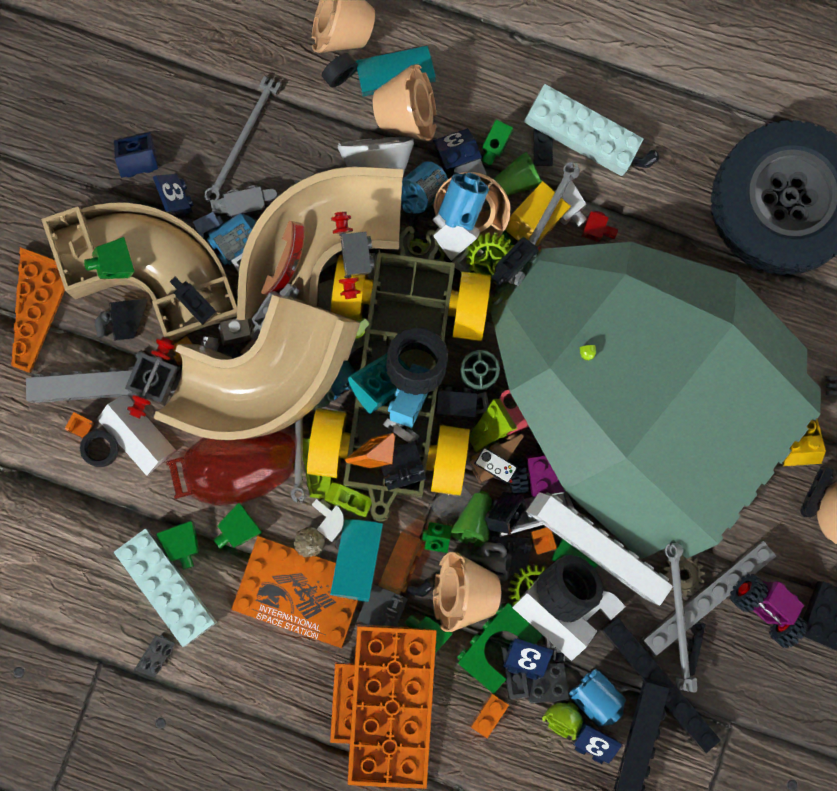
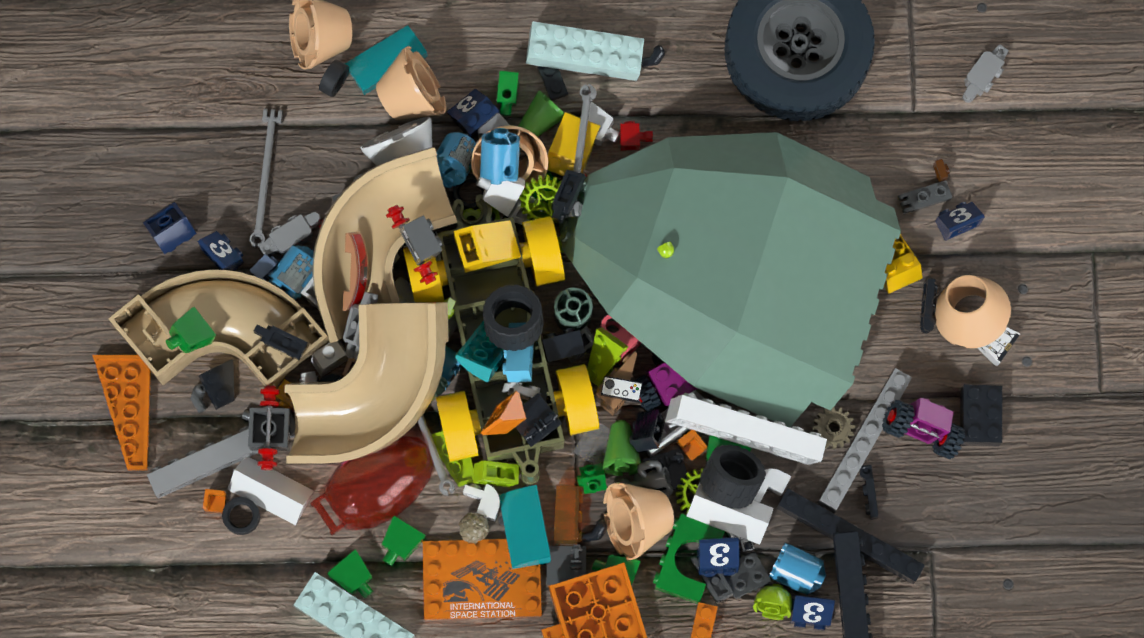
camera: 20 degrees left, 5 degrees down
(419, 281) = (486, 245): none -> yellow slope
(684, 682) = (873, 524): light grey hinge -> none

